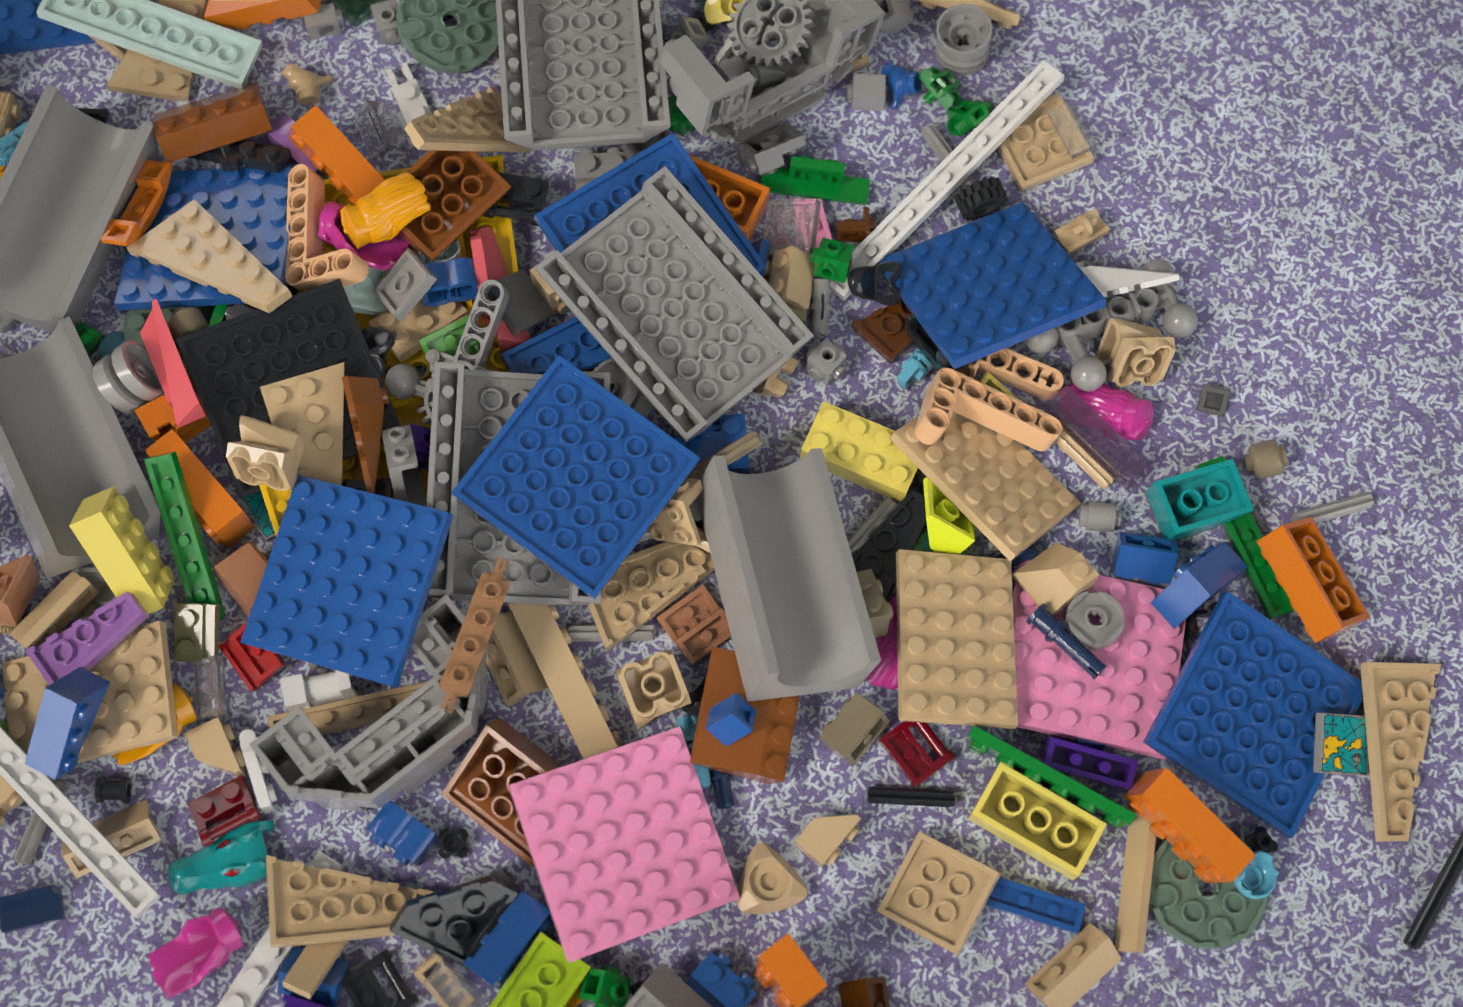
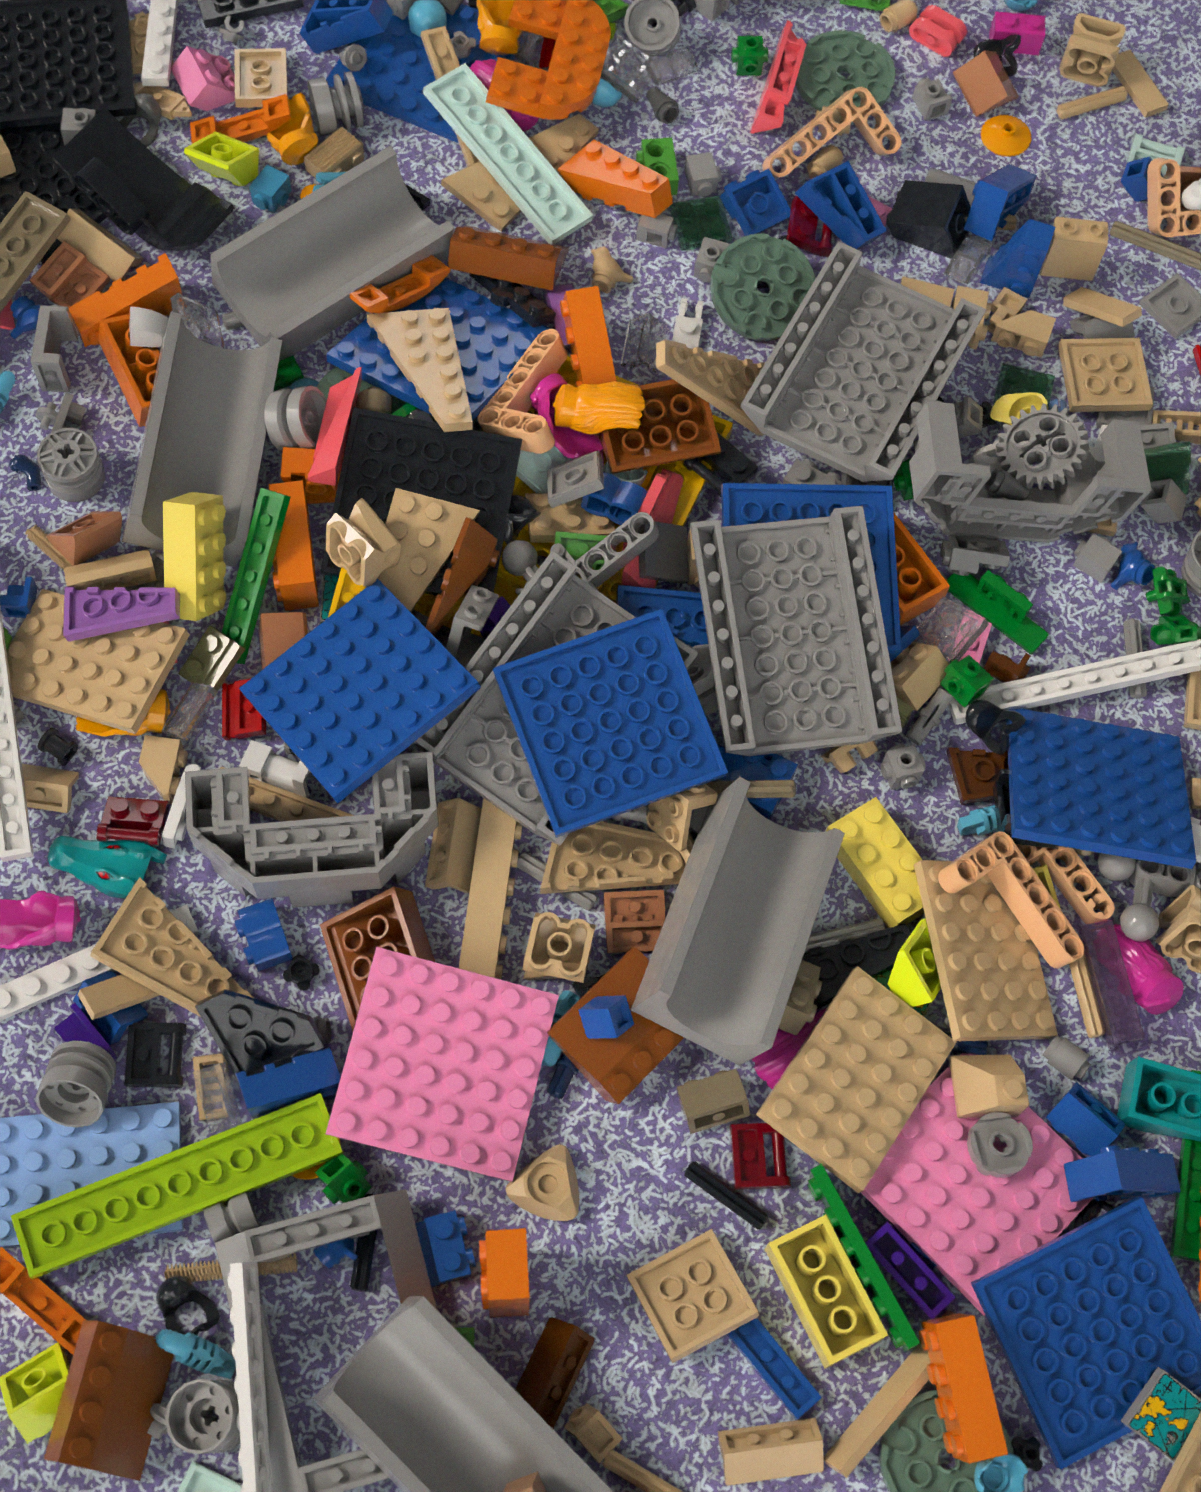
camera: 30 degrees right, 5 degrees down
(64, 721) = (54, 661): wedge -> none
(474, 635) = (431, 799): medium nougat plate -> none
(825, 835) = (624, 1178): tan slope -> none
(981, 198) = (1140, 709): black tyre -> none
(1055, 632) = (955, 1133): dark blue pin -> none

